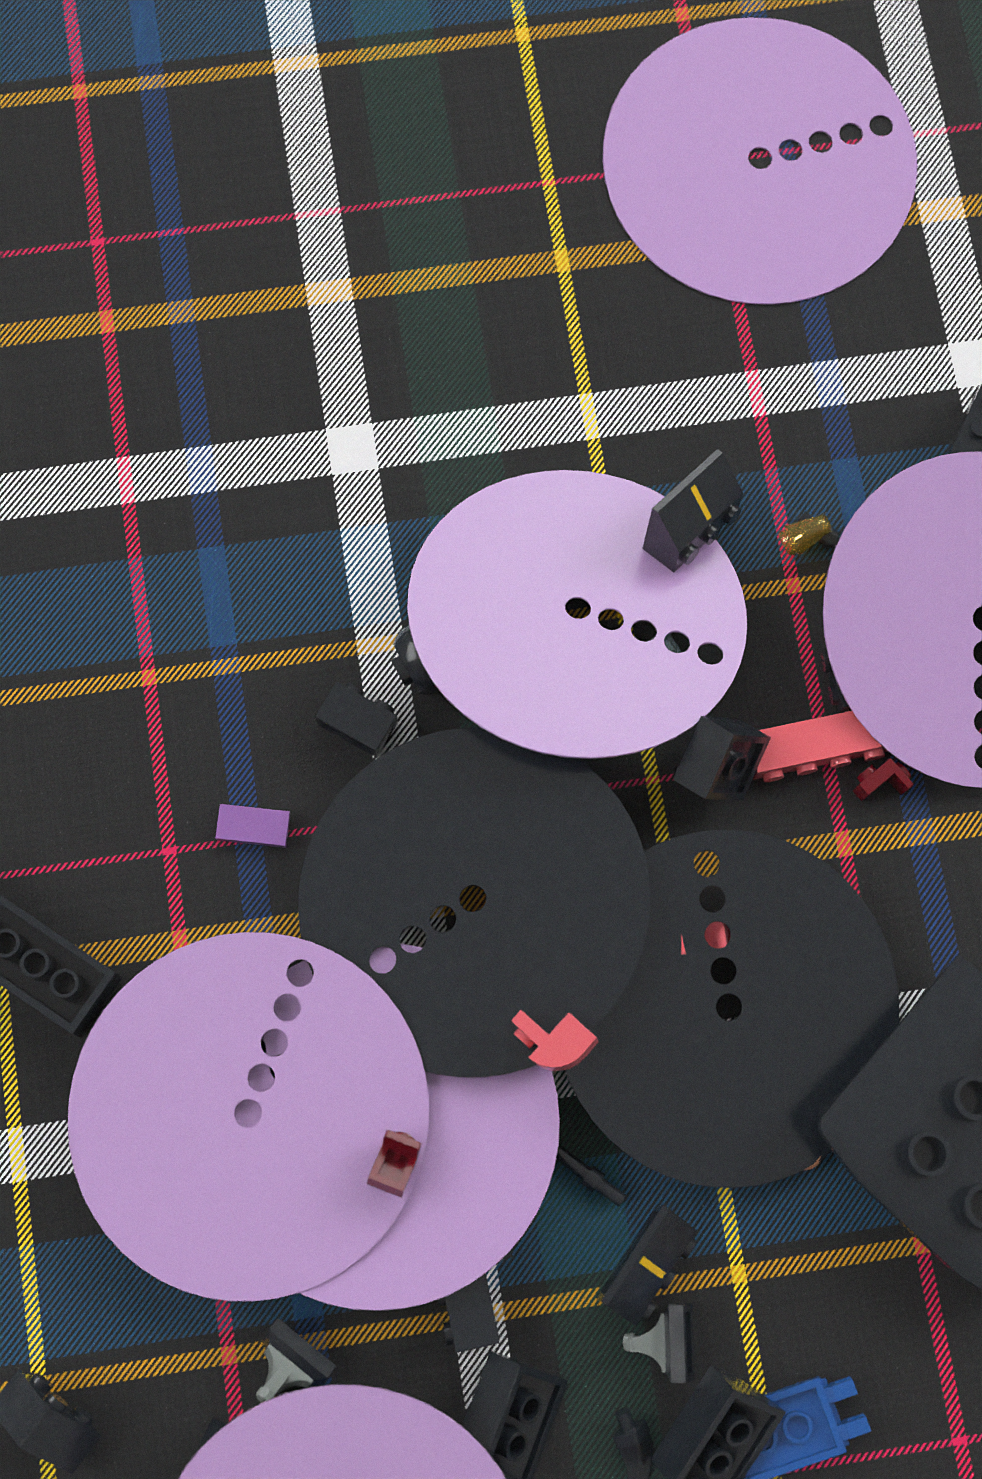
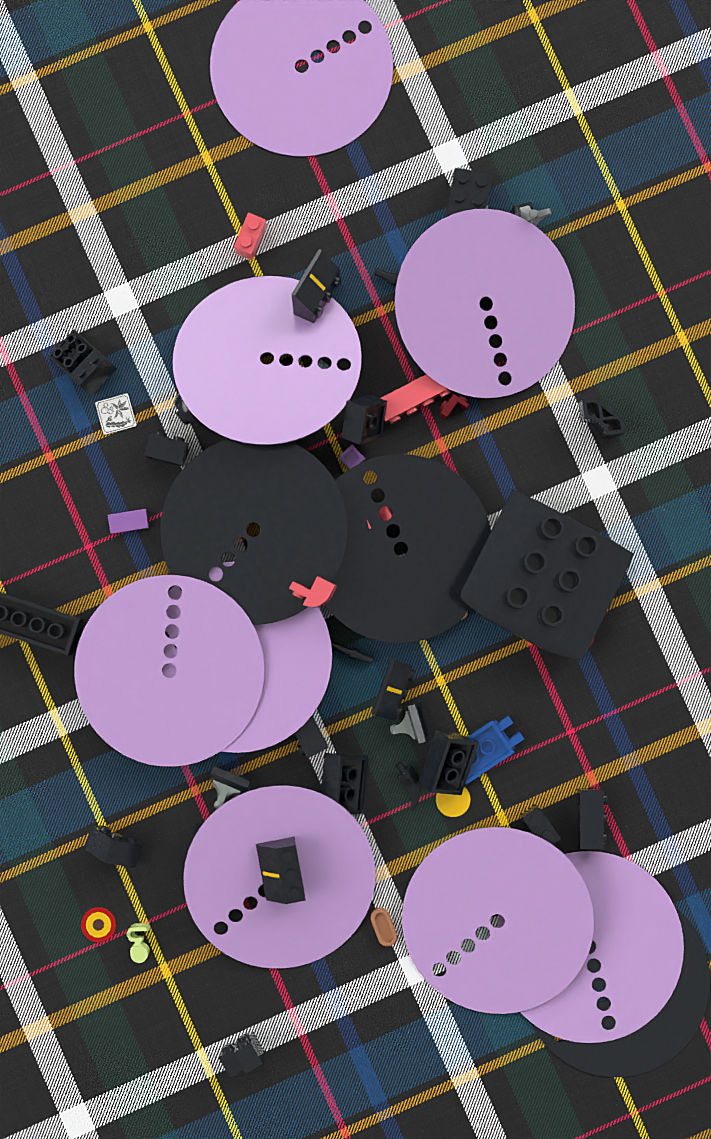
camera: 15 degrees left, 10 degrees up
(256, 533) = (82, 362): none -> black slope
(286, 635) = (115, 414): none -> white sticker
(394, 1163) = (250, 675): bracket -> none
(602, 402) = (250, 236): none -> coral brick
(678, 820) = (351, 457): none -> medium lavender tile
(803, 534) = (378, 282): clear yellow cone -> none

